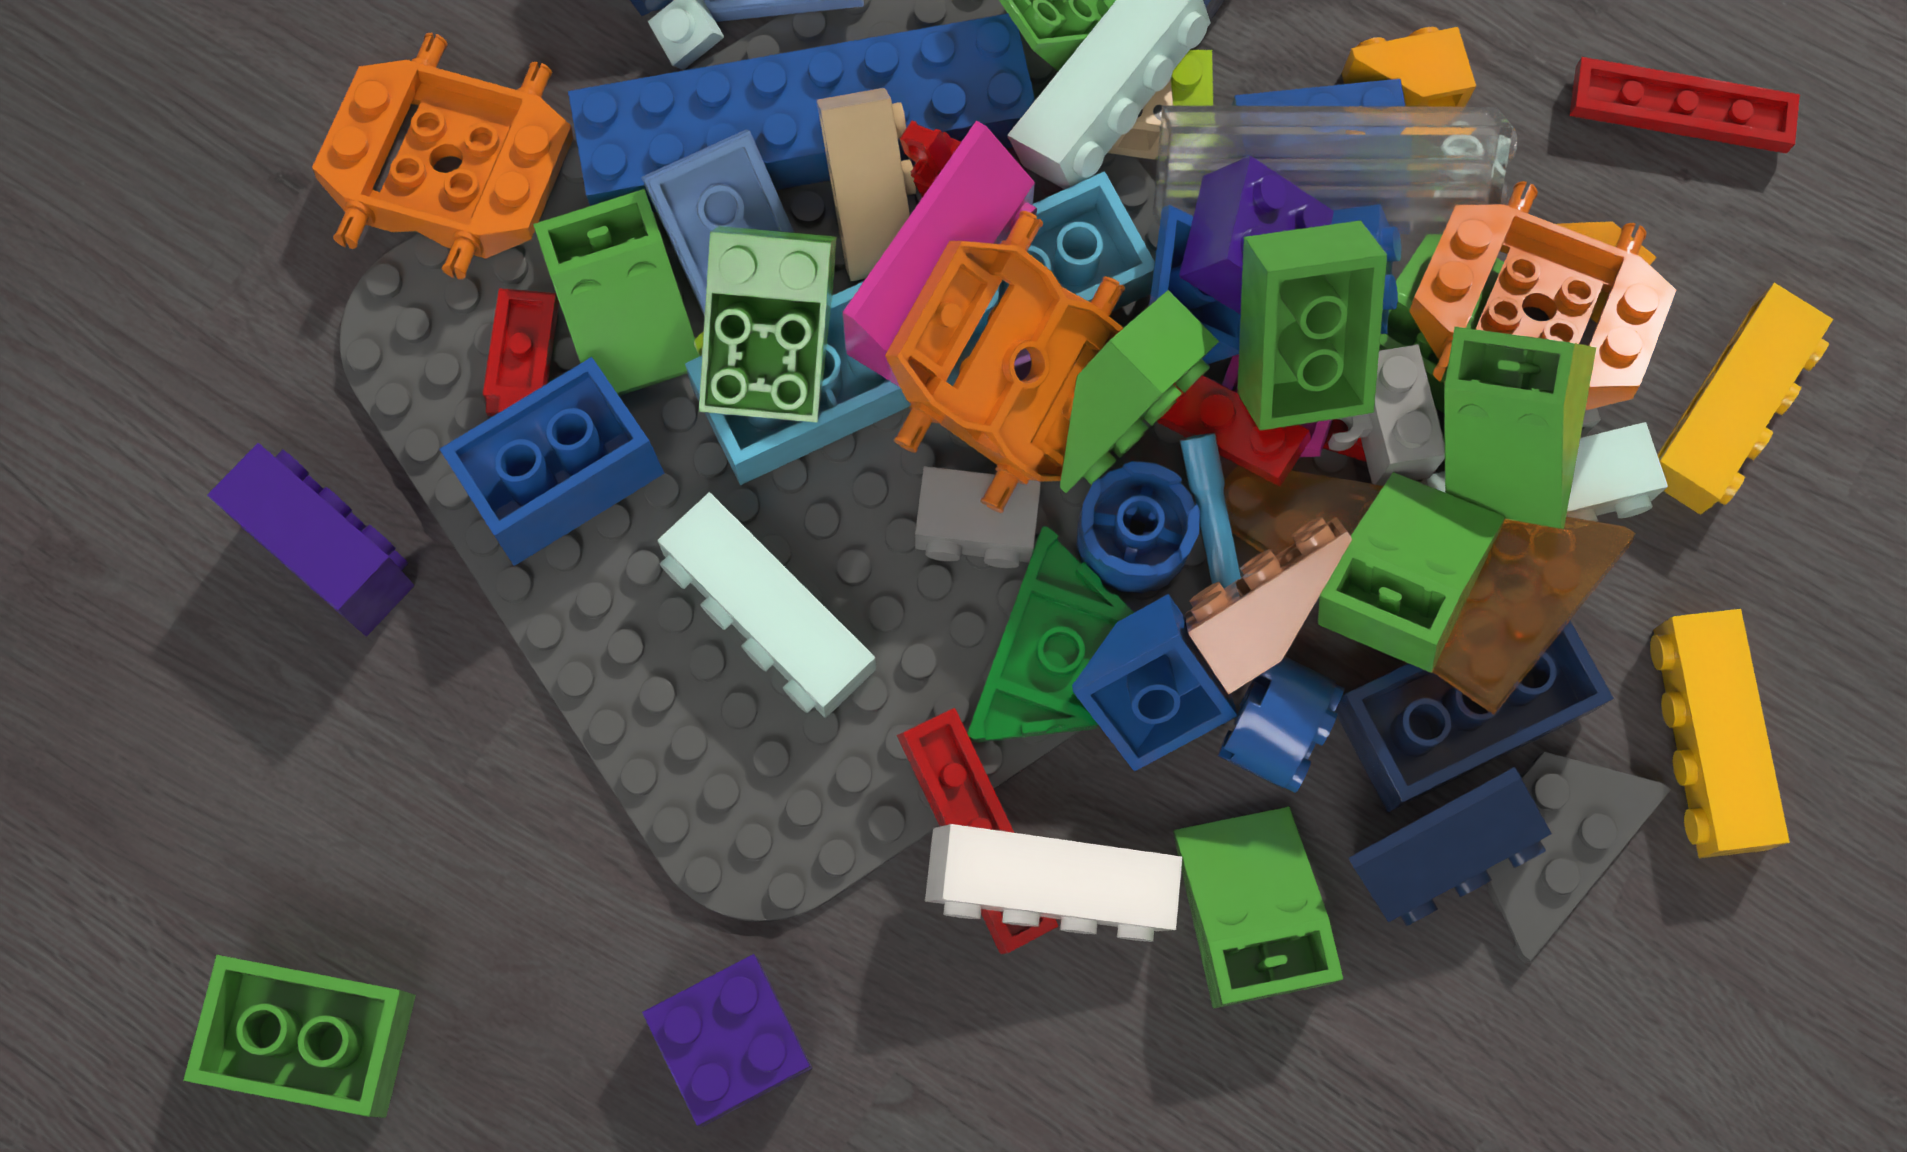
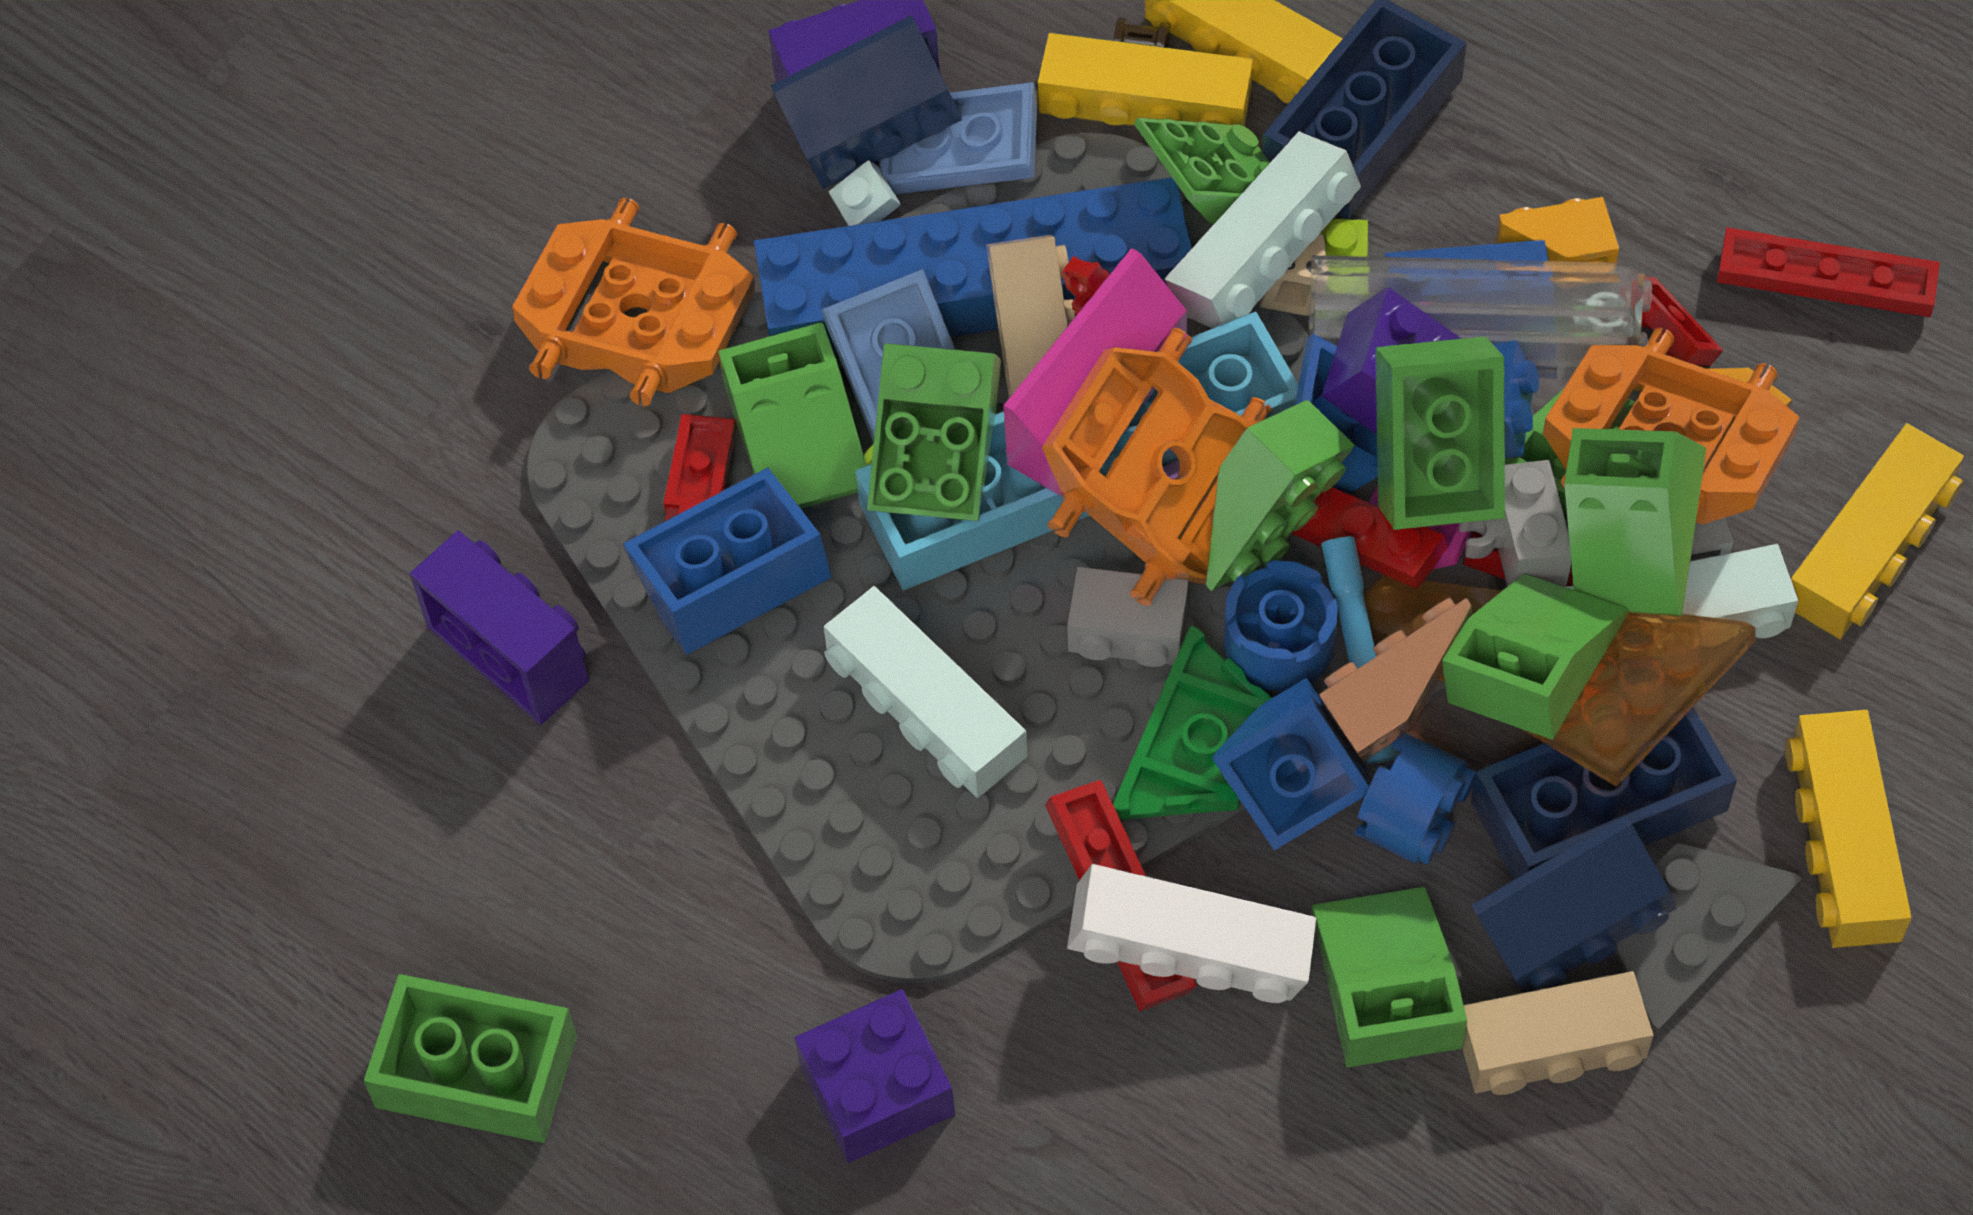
camera: 10 degrees right, 15 degrees down
(1429, 973) = (1556, 1033): none -> tan brick
(1536, 168) = (1690, 339): none -> red plate

